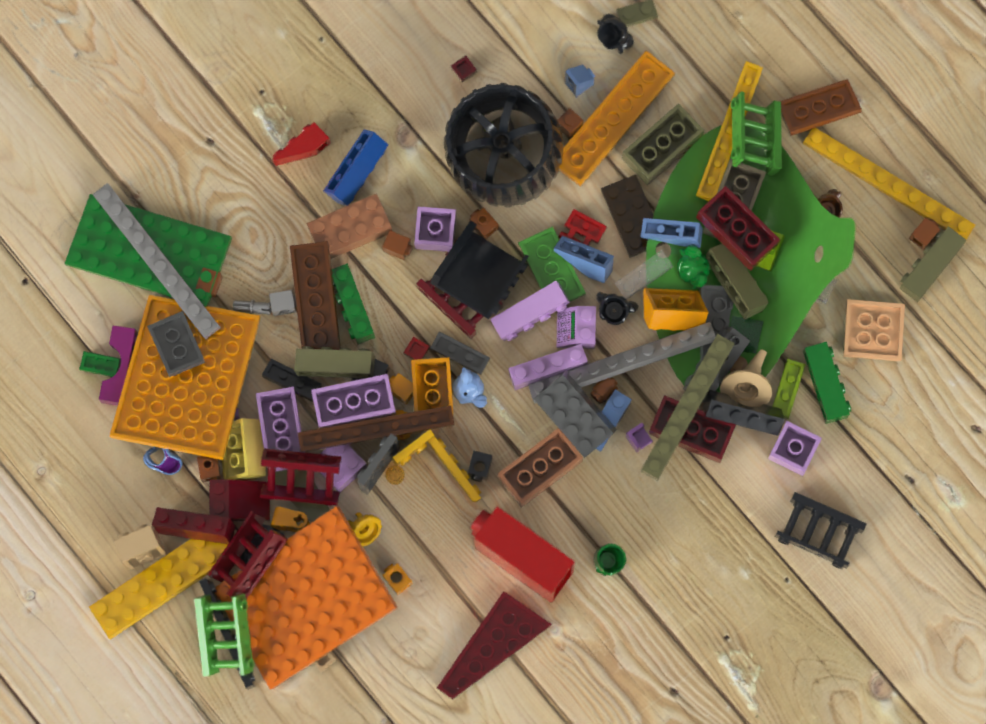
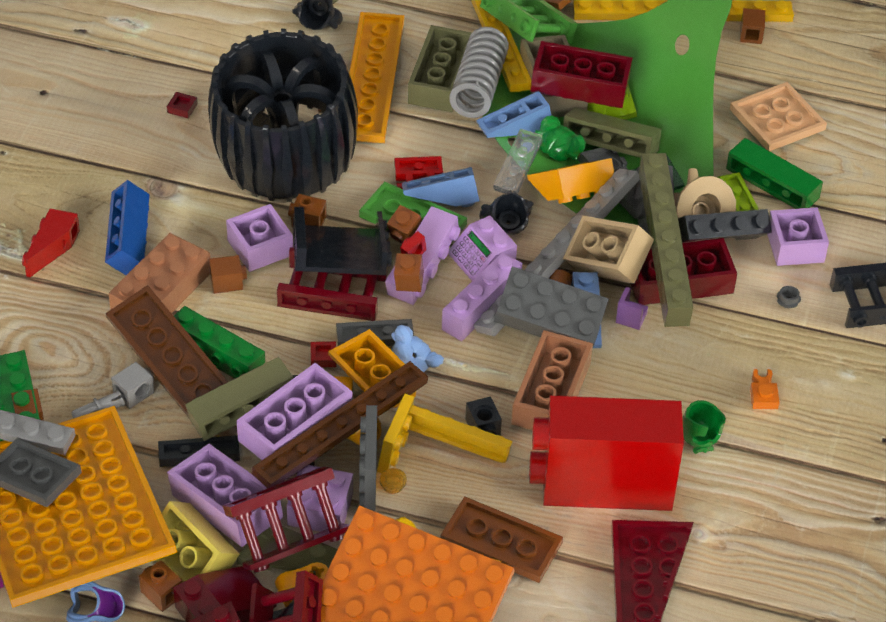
camera: 40 degrees left, 30 degrees down
(429, 560) = (503, 538): none -> dark orange plate
(503, 328) = (409, 272): none -> dark orange brick
(518, 309) = (414, 244): none -> red plate
(532, 281) = (403, 224): none -> dark orange brick
(628, 208) = (457, 141): dark brown plate -> none
(646, 390) = (608, 248): none -> tan brick
(676, 554) = (763, 392): none -> orange plate
(679, 177) = (479, 72): none -> light grey piece
(752, 486) = (788, 297): none -> dark grey plate
(932, 264) = (782, 44): olive brick -> none

